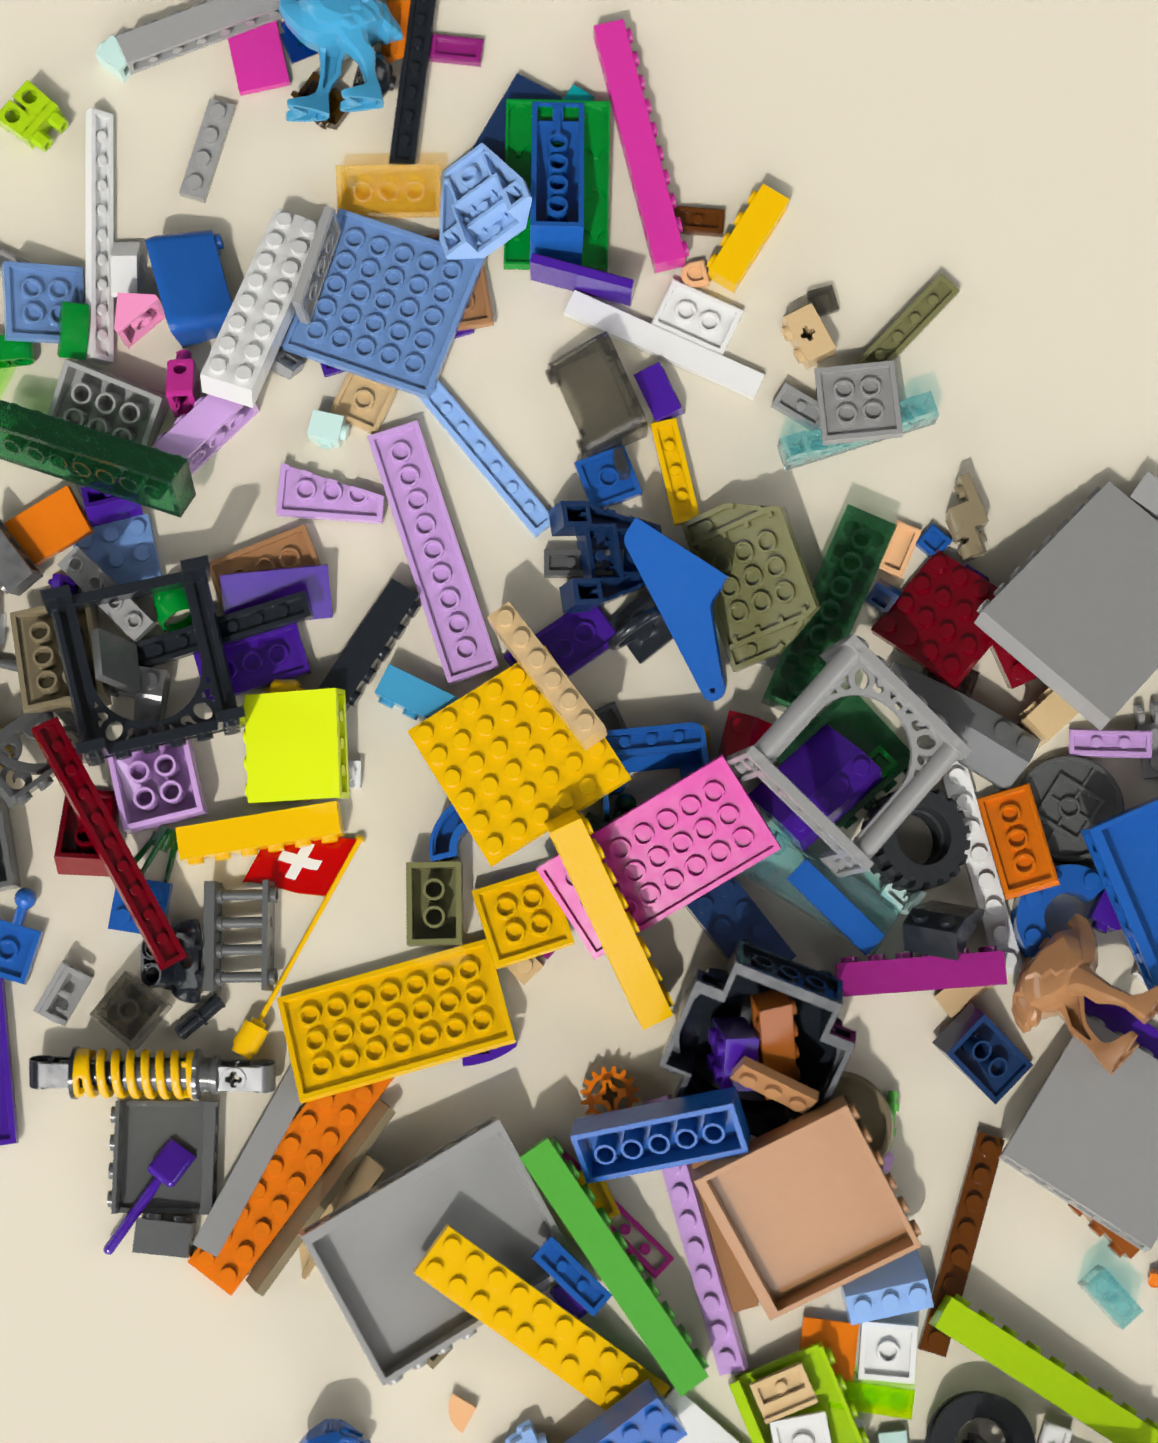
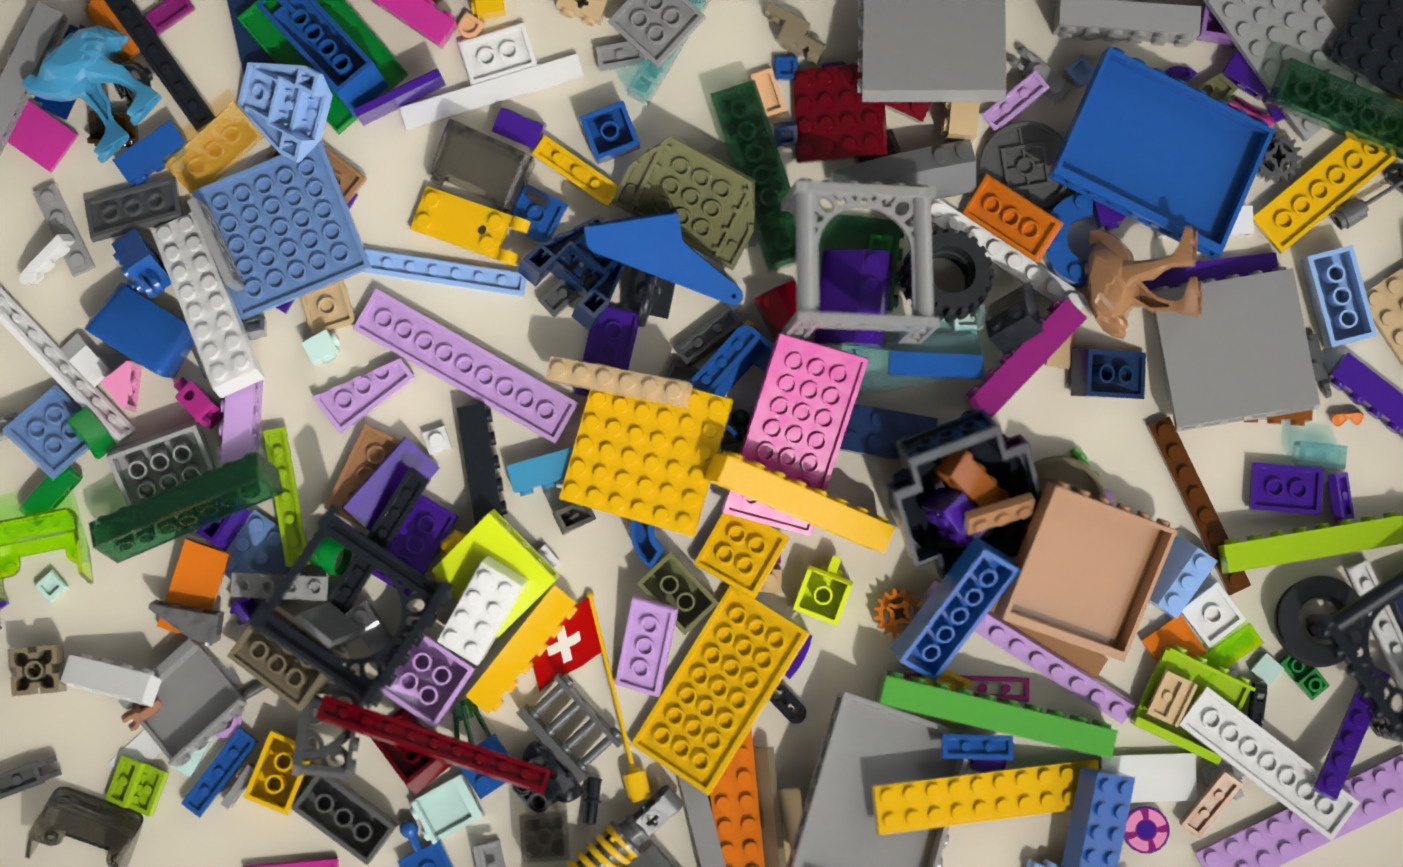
camera: 45 degrees left, 5 degrees up
(72, 910) = (446, 809): none -> light aqua panel
(169, 158) = (46, 259): none -> white hinge
(181, 530) = (288, 503): none -> lime plate
(241, 227) = (141, 263): none -> blue brick
(255, 766) = (482, 610): none -> white brick
(278, 180) = (133, 208): none -> dark grey plate
(333, 147) = (150, 154): none -> blue brick
(351, 593) = (437, 440): none -> white plate
(366, 924) = (646, 645): none -> lavender tile
(404, 759) = (573, 517): none -> dark grey slope
(435, 1088) = (791, 700): none -> black beam
(535, 426) = (458, 221): none -> yellow hinge
(560, 1017) = (823, 592): none -> neon yellow hinge
(660, 709) = (708, 336): none -> dark grey plate
(732, 463) = (610, 132): none -> blue brick
(1053, 1299) = (1286, 488): none -> dark purple plate
(1097, 1351) = (1340, 495): none -> dark purple plate

